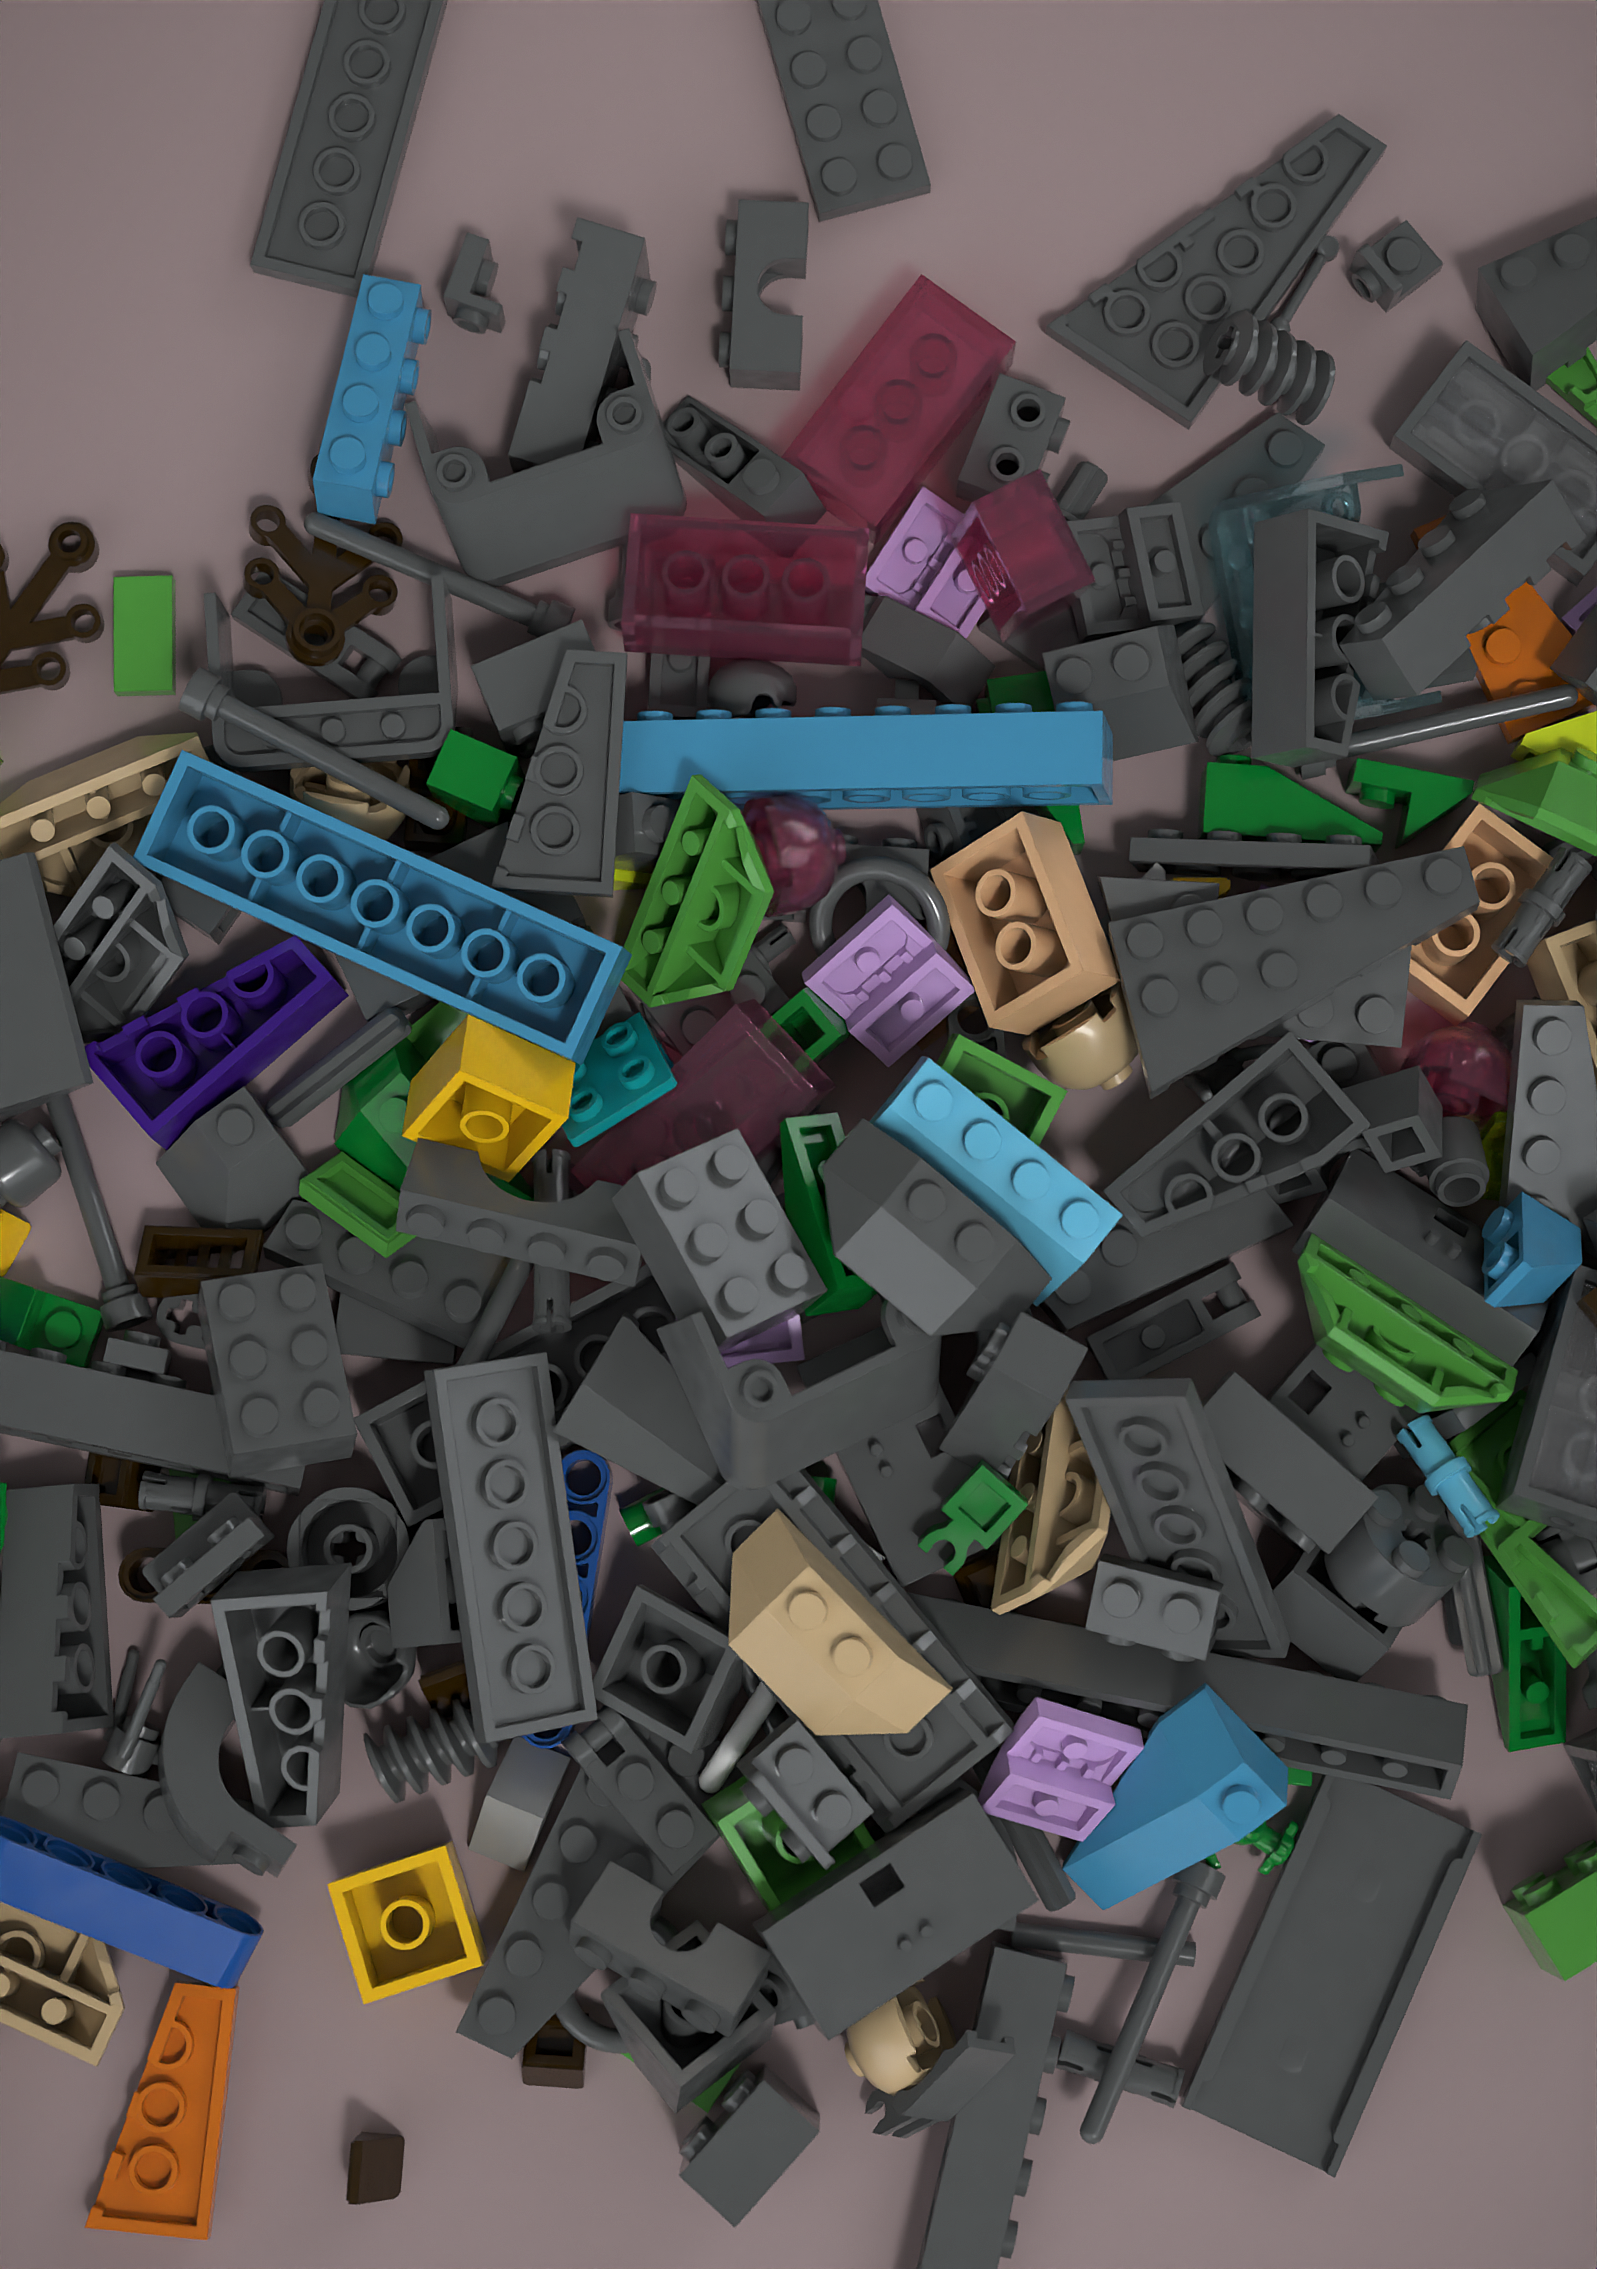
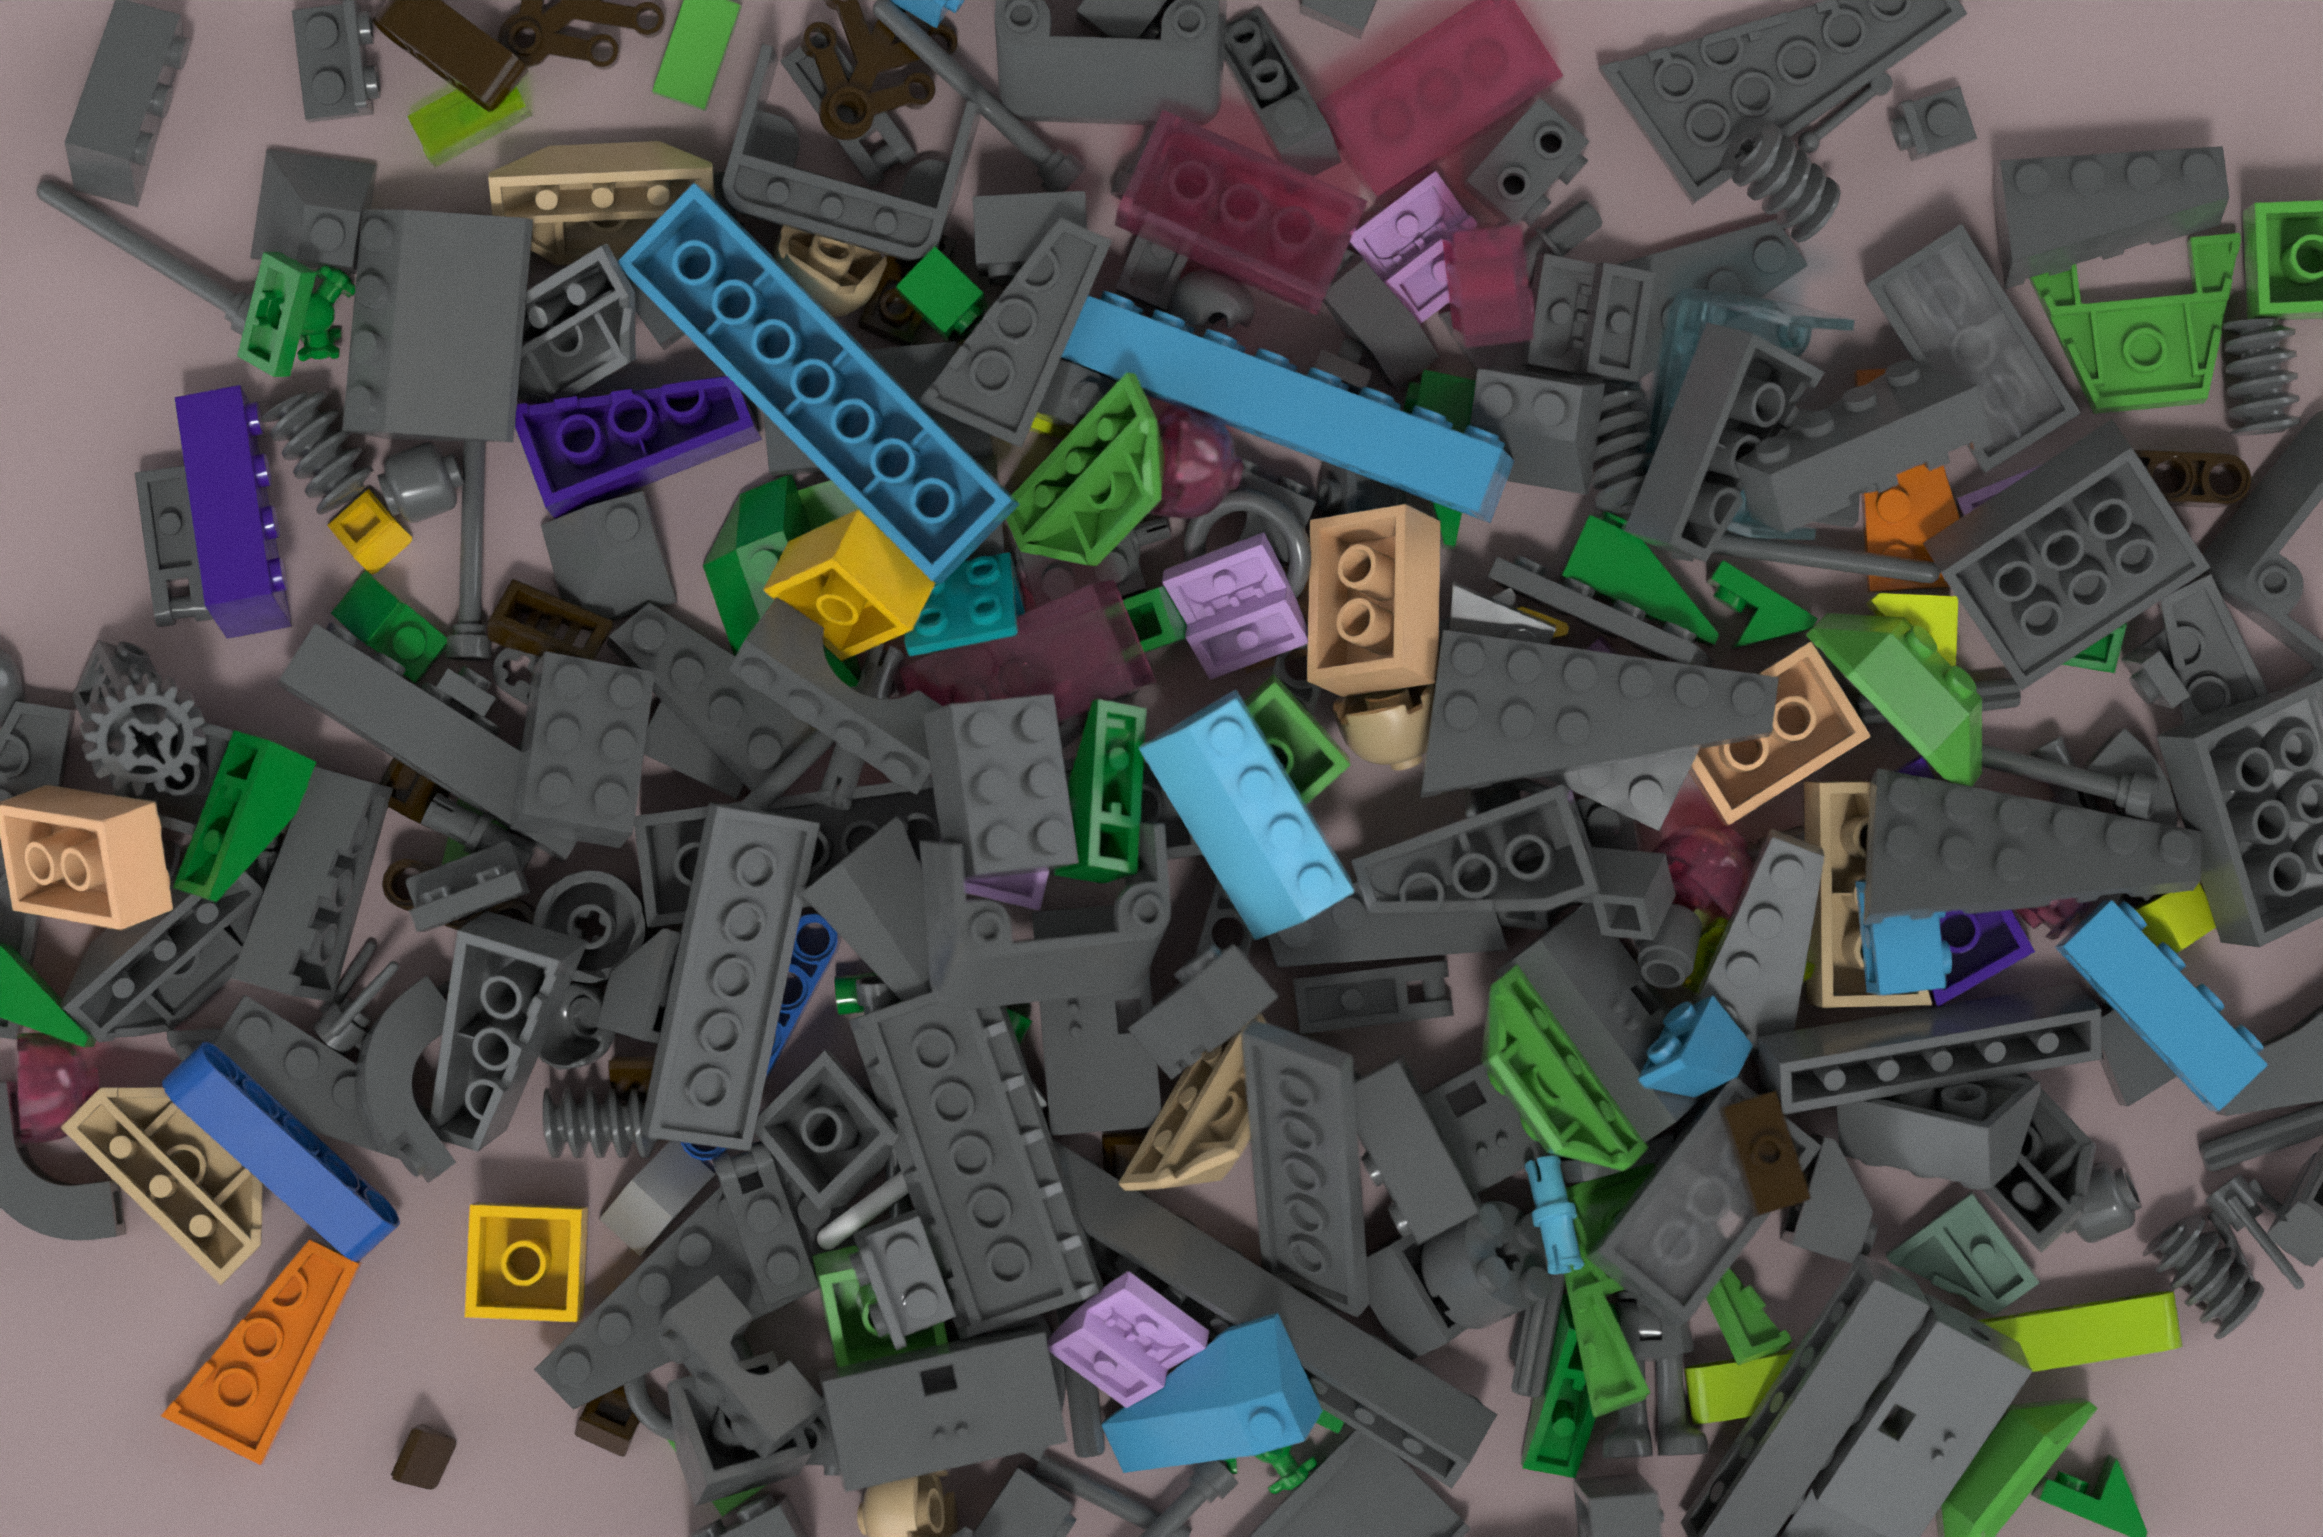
camera: 20 degrees right, 5 degrees up
(209, 698) = (736, 144): dark grey piece -> none
(338, 1067) = (730, 502): dark grey axle -> none
(356, 1202) = (704, 626): bright green tile -> none
(823, 1639) = (966, 1156): tan wedge -> none
(923, 1239) = (1174, 850): dark grey wedge -> none
(978, 1510) = (1139, 1094): green plate -> none
(1154, 1608) = (1259, 1234): dark grey bracket -> none
(1541, 907) = (1827, 754): dark grey pin -> none

